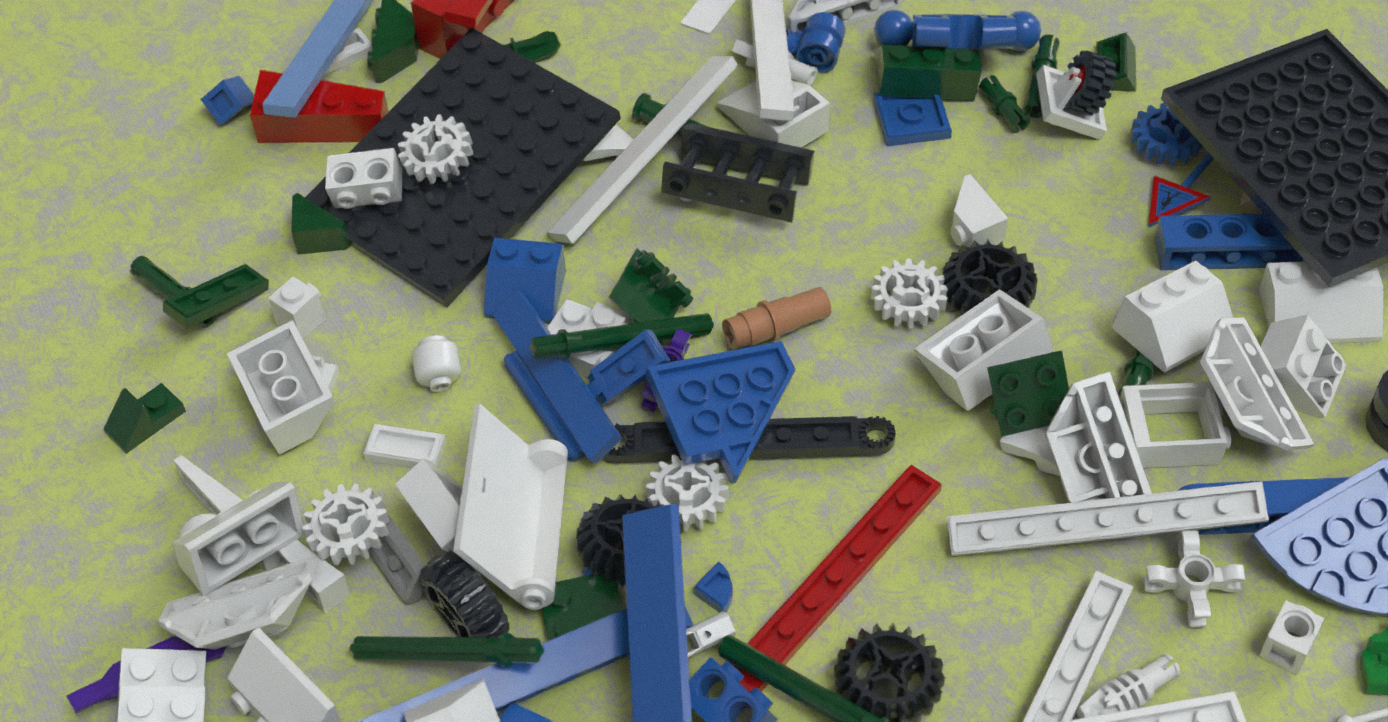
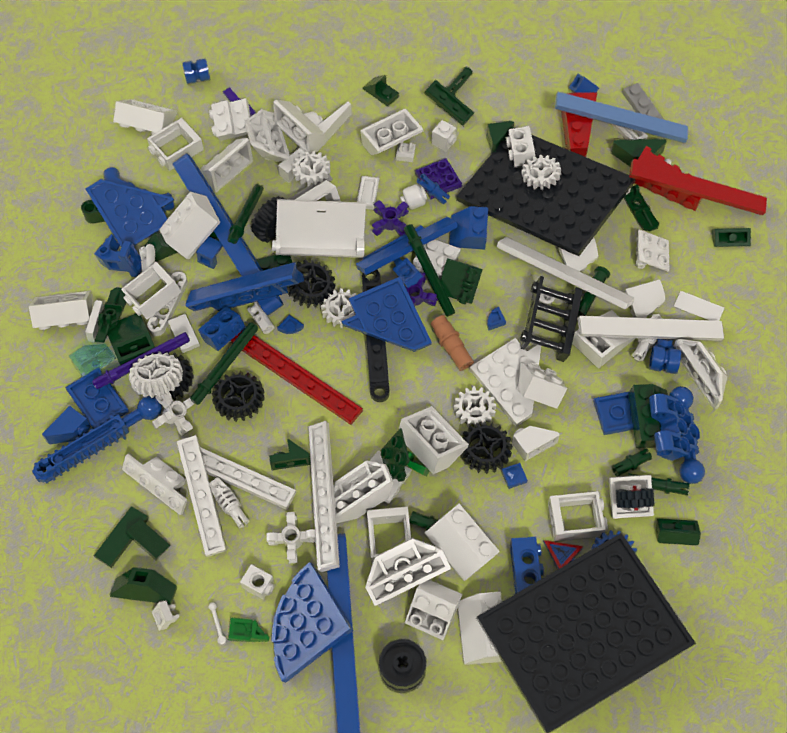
camera: 85 degrees right, 10 degrees up
(281, 32) = (640, 101): none -> light grey plate
(389, 329) = (442, 174): none -> dark purple tile
(429, 324) = (433, 188): none -> blue pin
(481, 393) = (390, 212): none -> dark purple pin
(592, 37) = (652, 251): none -> white hinge
(692, 53) = (647, 298): none -> white slope
(721, 261) = (495, 319): none -> blue tile
(847, 245) = (500, 376): none -> white wing
(873, 192) = (541, 385): none -> white slope
(1022, 576) = (295, 458): none -> dark green slope
(1038, 250) = (514, 475): none -> blue tile
(1115, 196) = (558, 501): none -> white window

